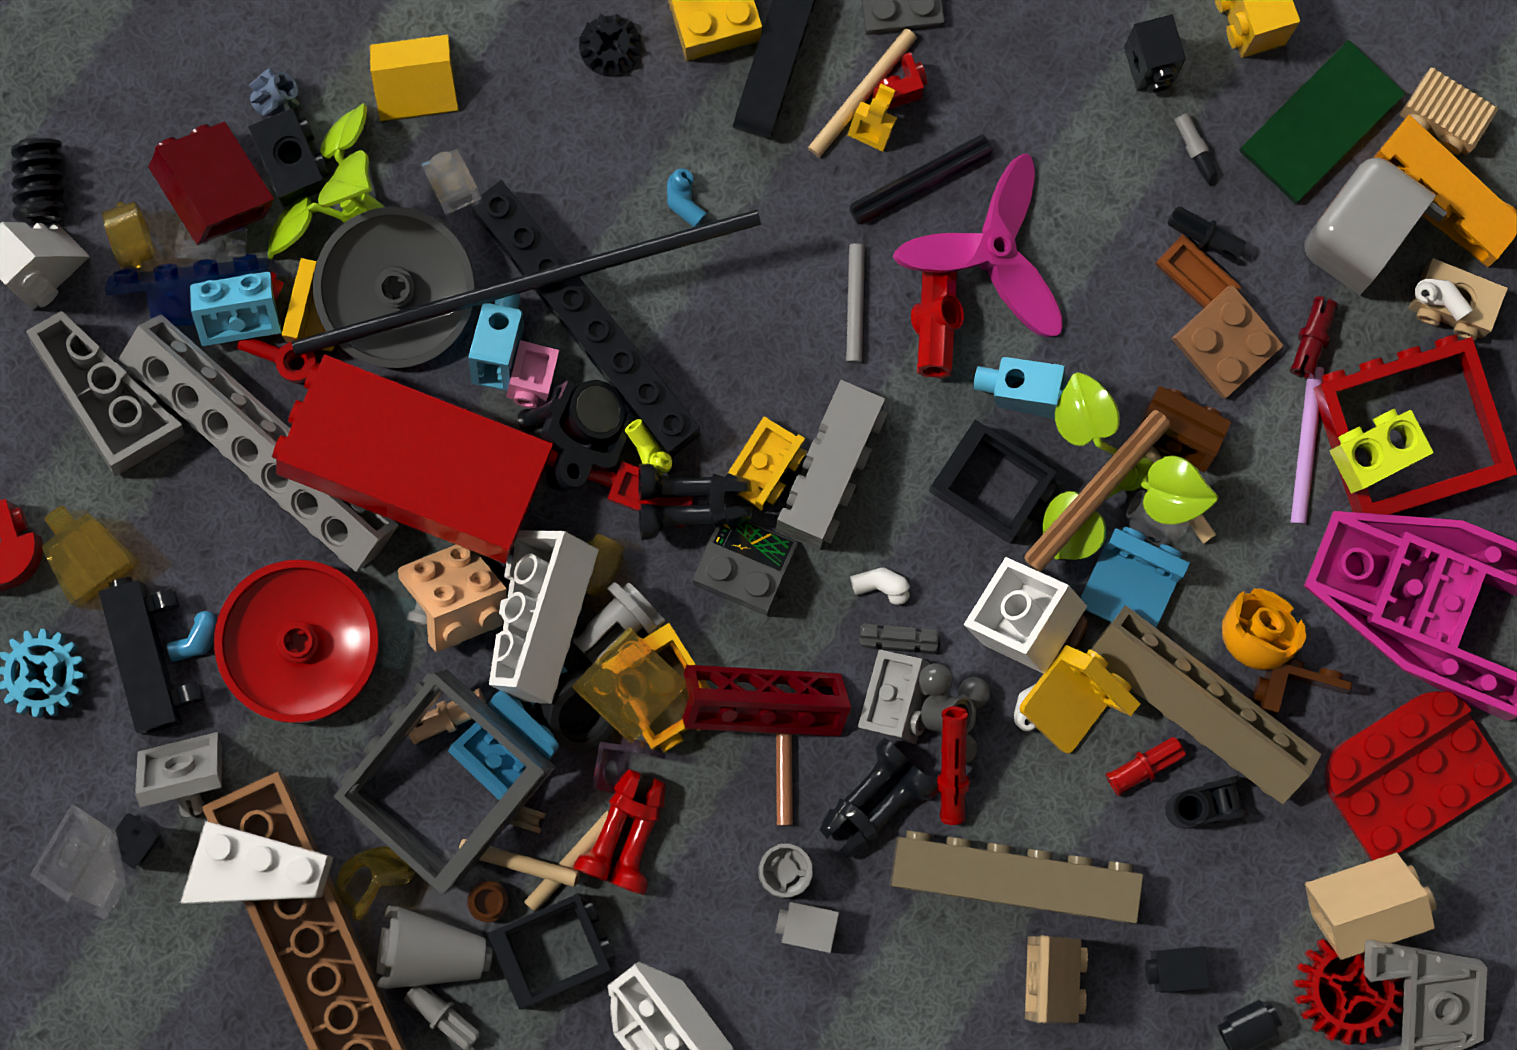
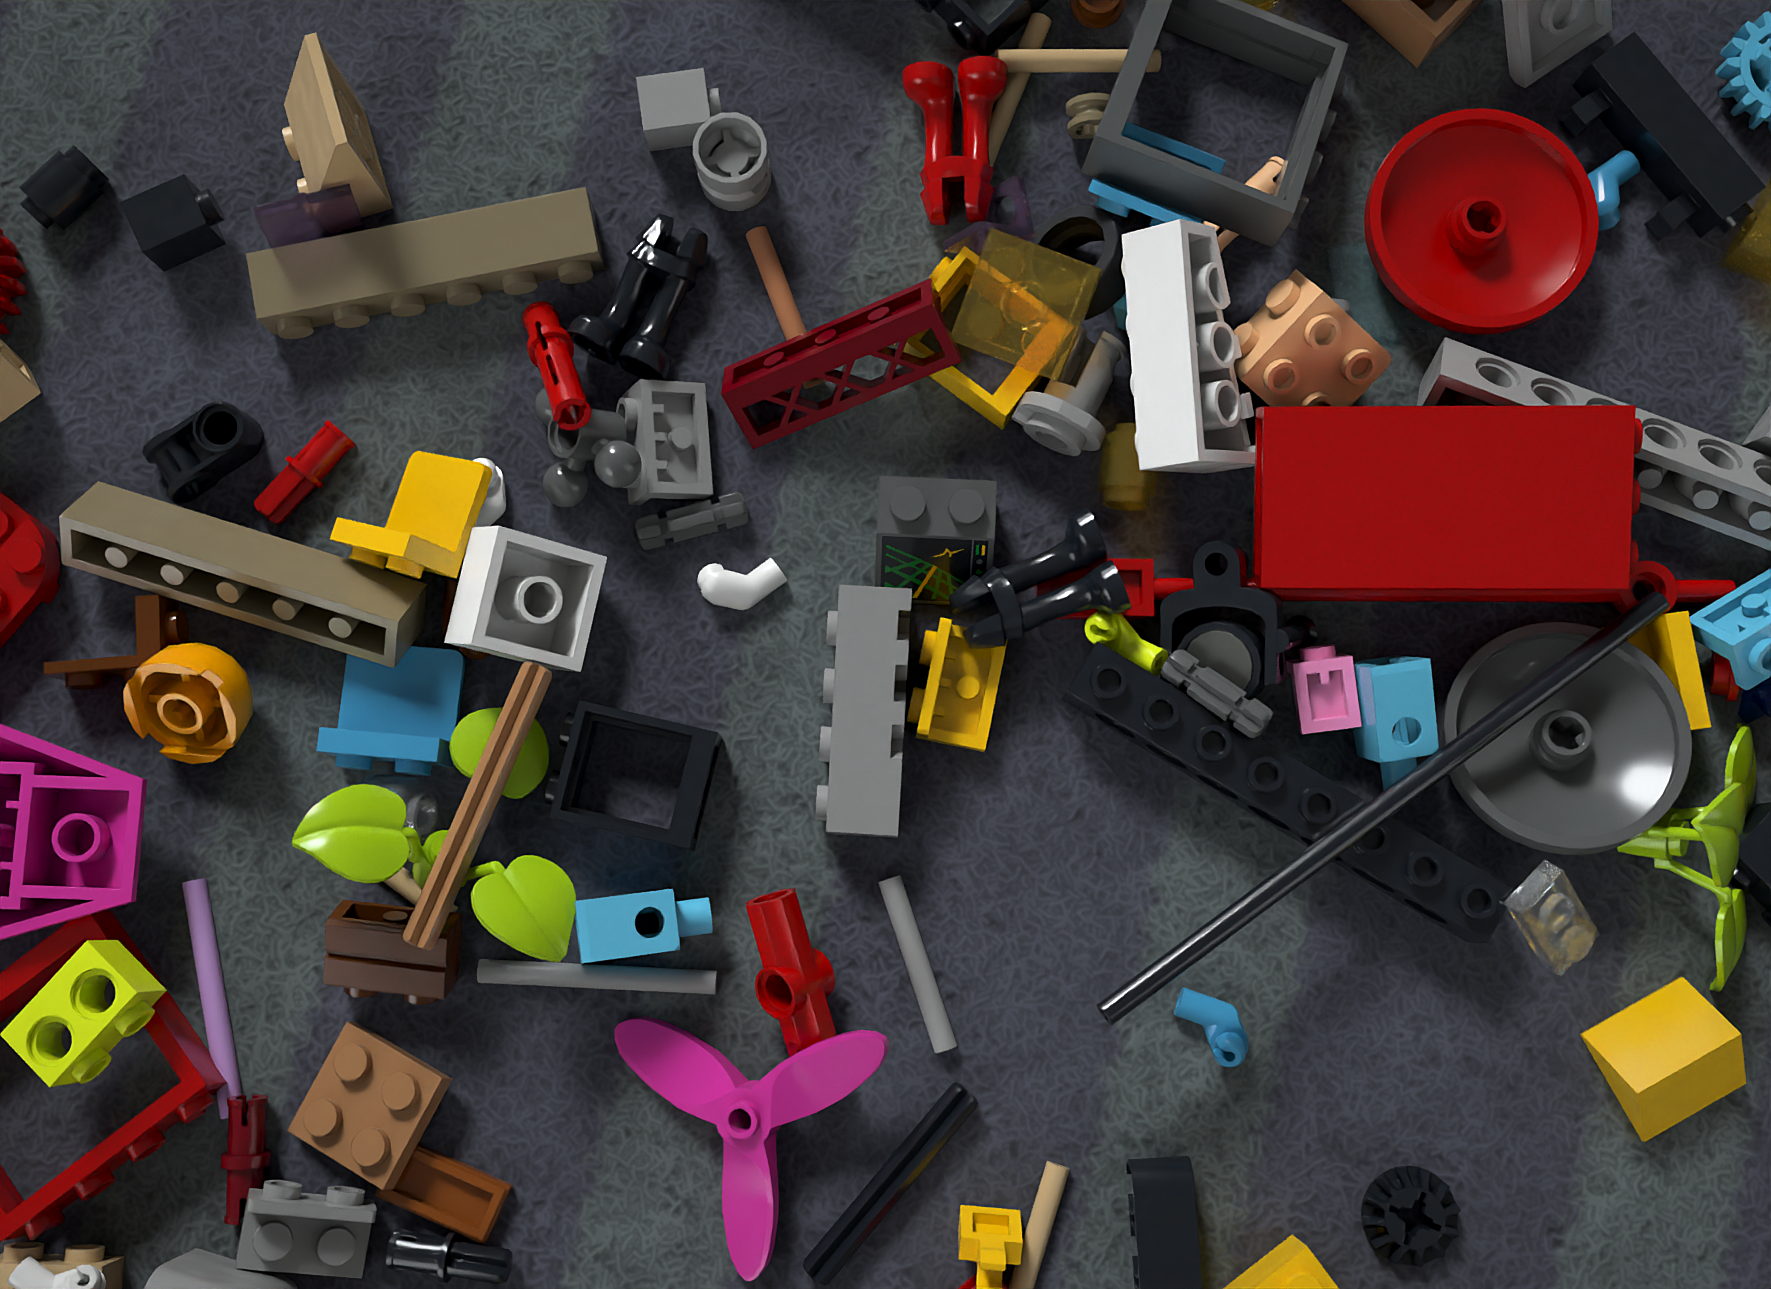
camera: 165 degrees right, 0 degrees up
(606, 390) = (1216, 693): none -> dark grey axle
(1022, 352) = (597, 976): none -> light grey bar
(1085, 930) = (310, 216): none -> clear purple piece
(1288, 280) = (305, 1230): none -> light grey bracket

